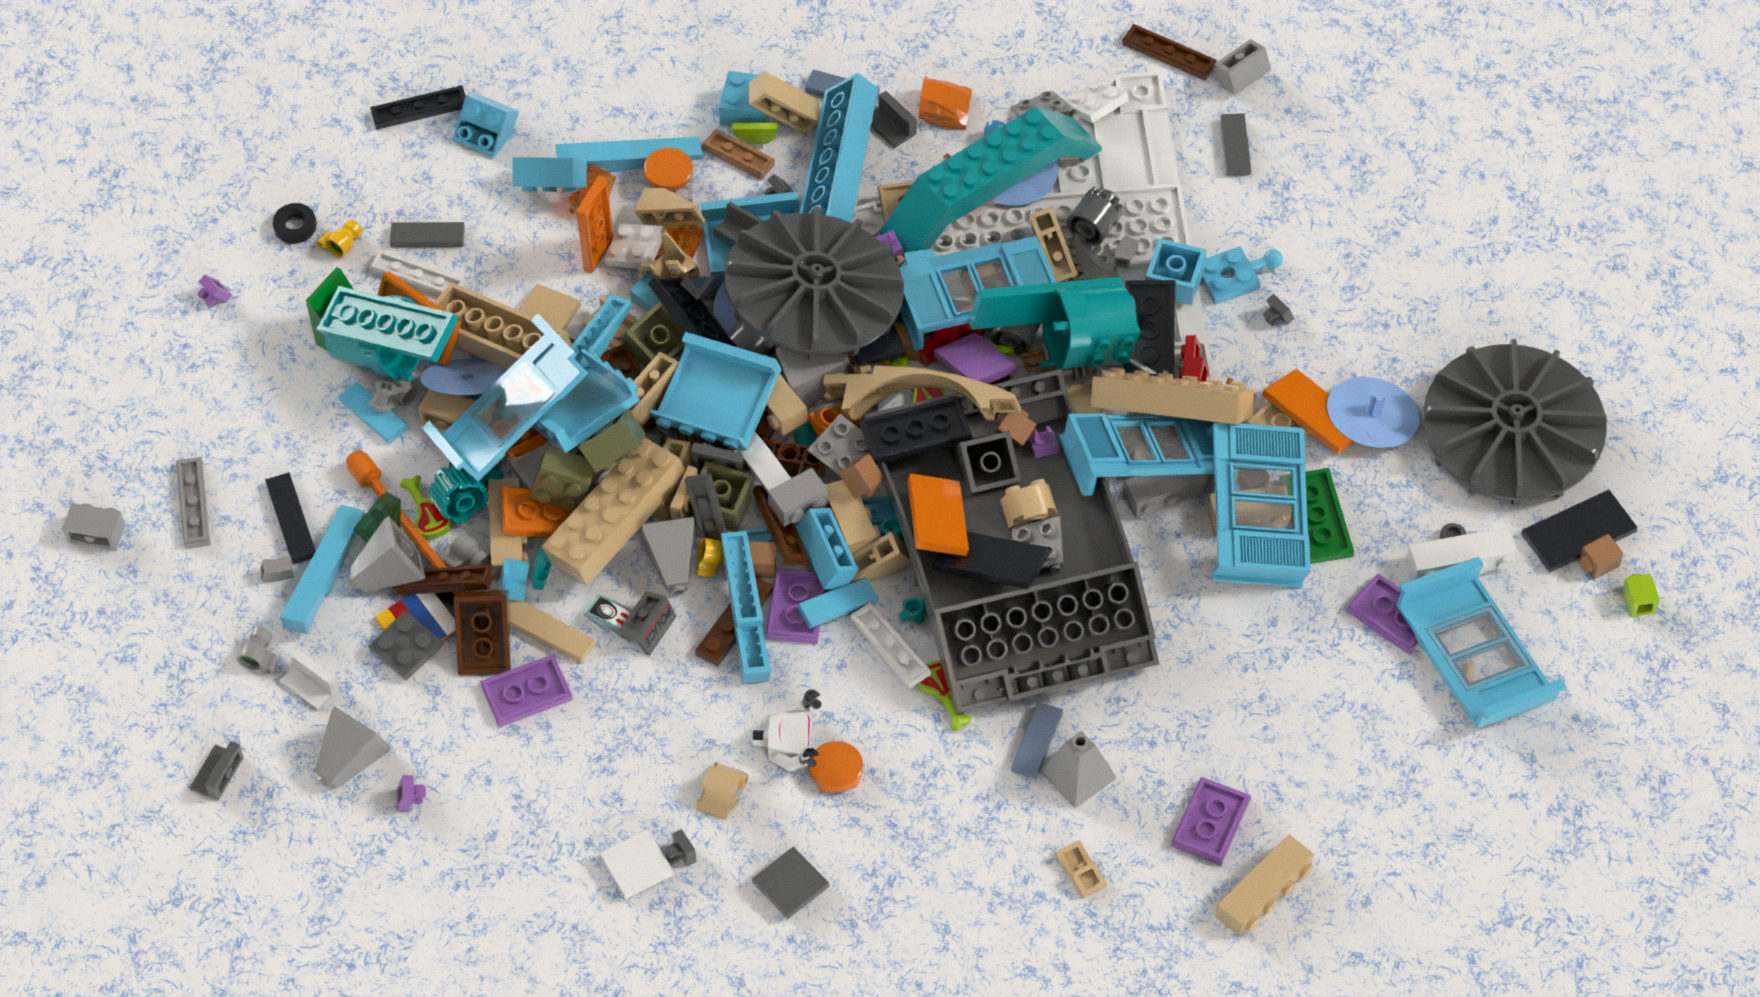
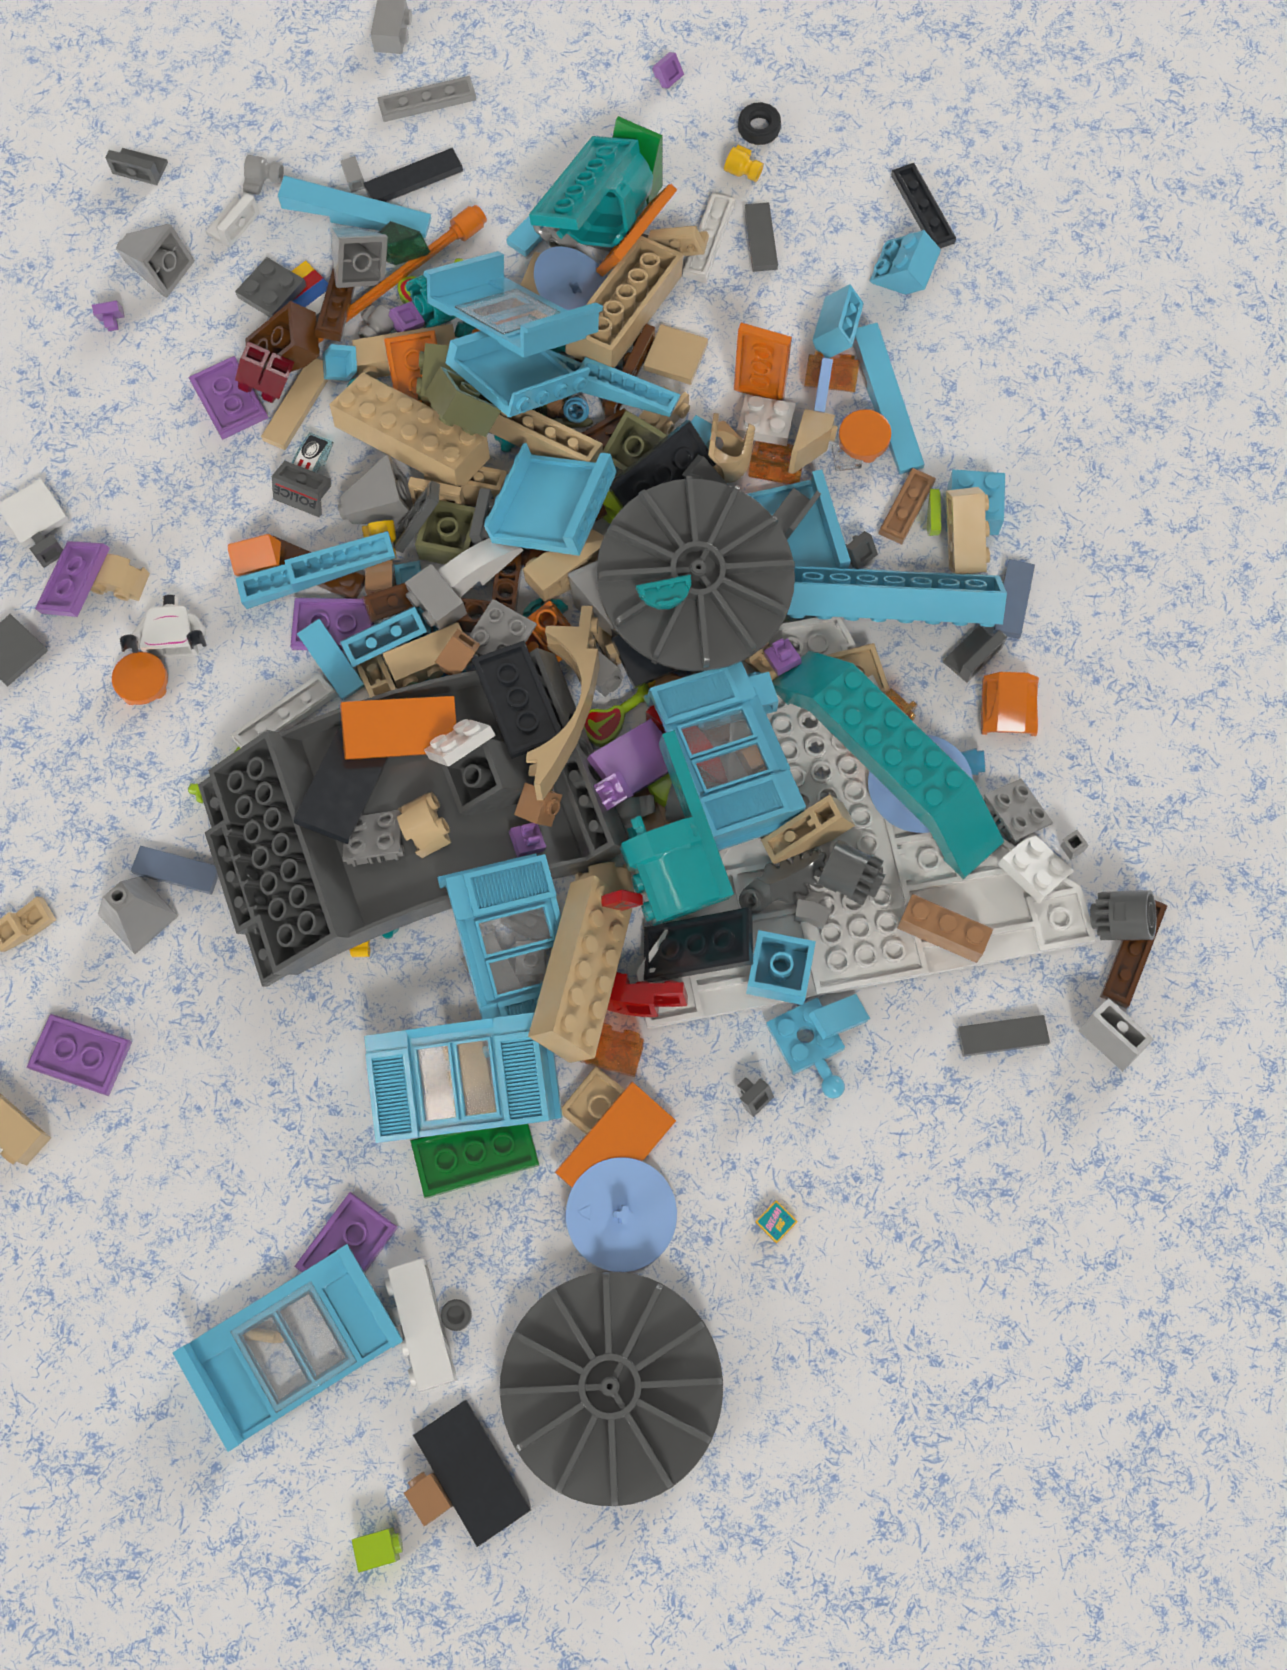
camera: 85 degrees right, 15 degrees up
(432, 281) = (682, 239): none -> tan bracket
(473, 521) = (406, 317): none -> medium lavender tile
(520, 639) = (251, 372): none -> dark red hips
(618, 196) = (823, 385): none -> light blue tile
(719, 661) = (254, 554): none -> orange slope
(721, 822) = (72, 578): none -> medium lavender tile
(840, 293) = (665, 593): none -> teal tile
(961, 463) = (458, 743): none -> white plate
(1009, 367) = (613, 790): none -> medium lavender tile
(1077, 74) = (1079, 841): none -> light grey piece
(1117, 358) = (622, 900): none -> red tile
(1145, 44) = (1124, 915): none -> dark grey gear
(1148, 161) = (945, 928): none -> medium nougat brick
(1216, 245) = (839, 1016): none -> medium azure tile
(1382, 309) = (776, 1221): none -> teal tile

